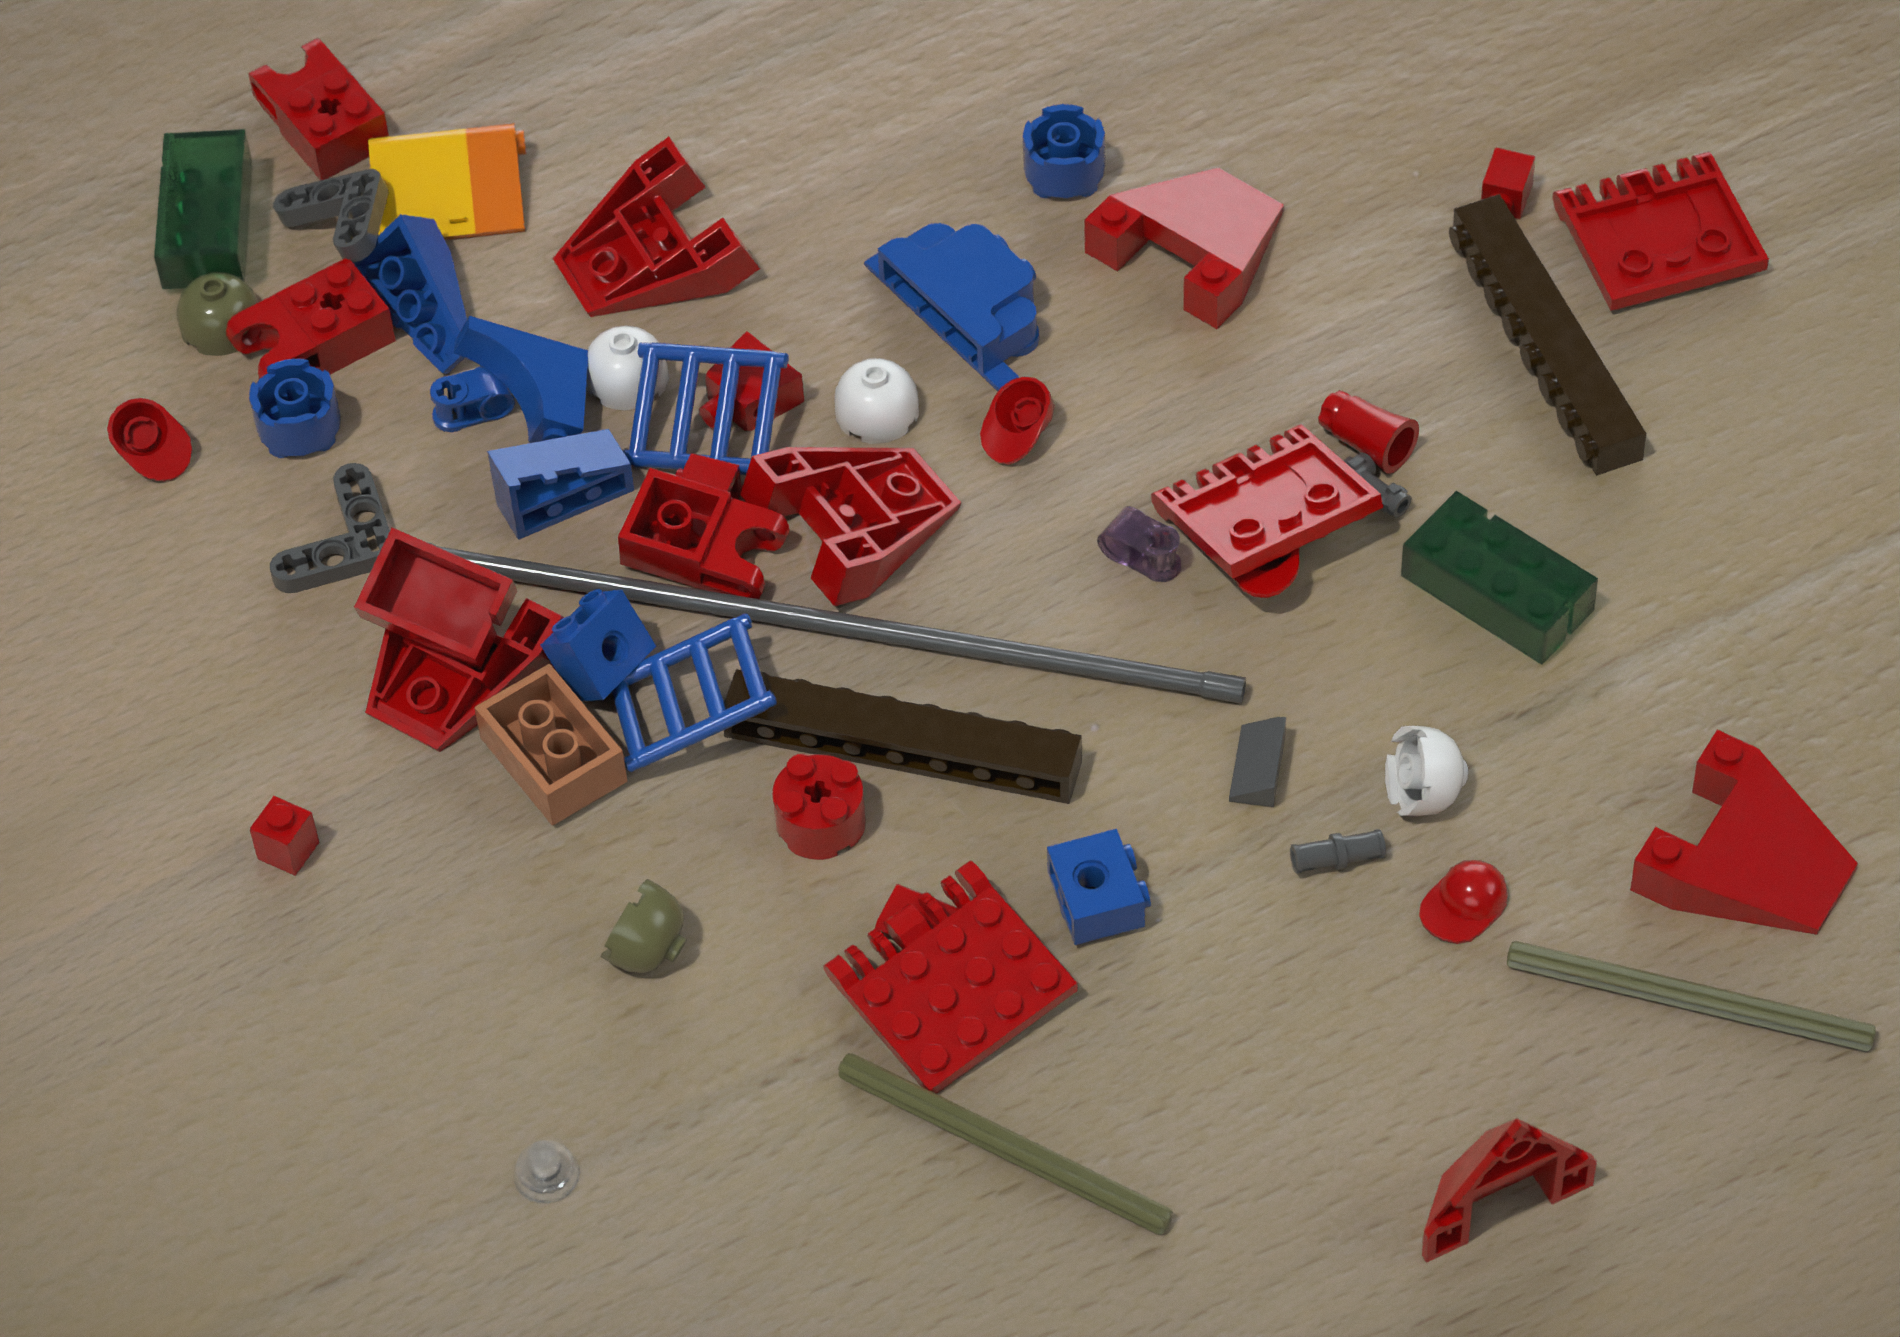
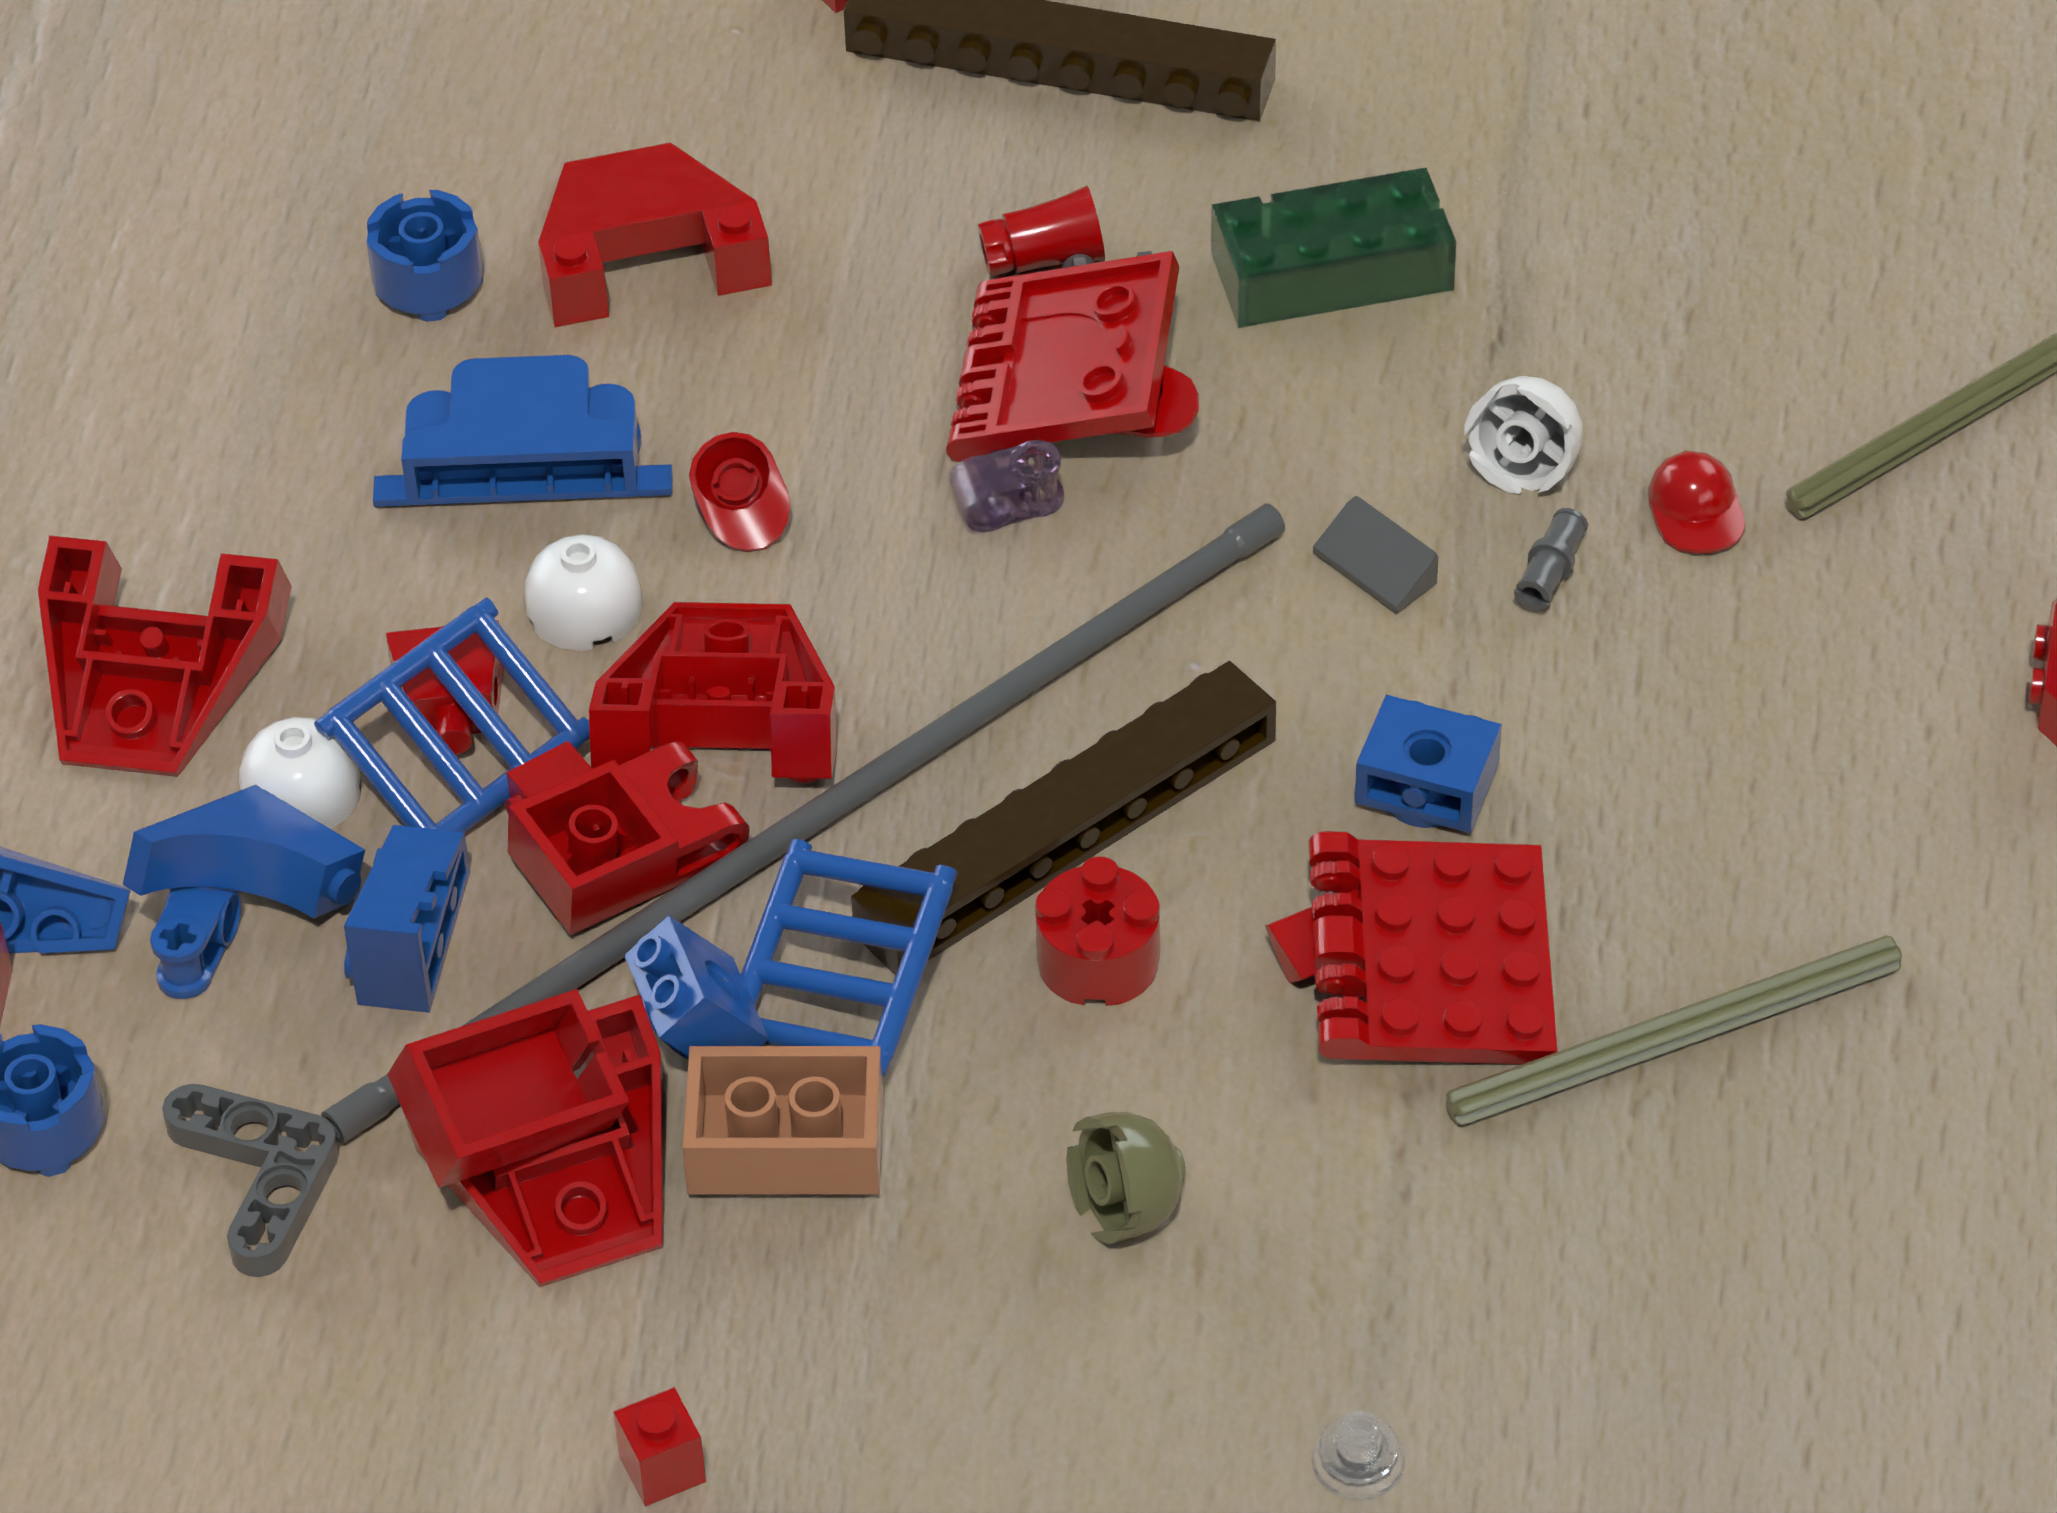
camera: 55 degrees left, 5 degrees down
(1761, 856) = (1855, 260): red wedge -> none

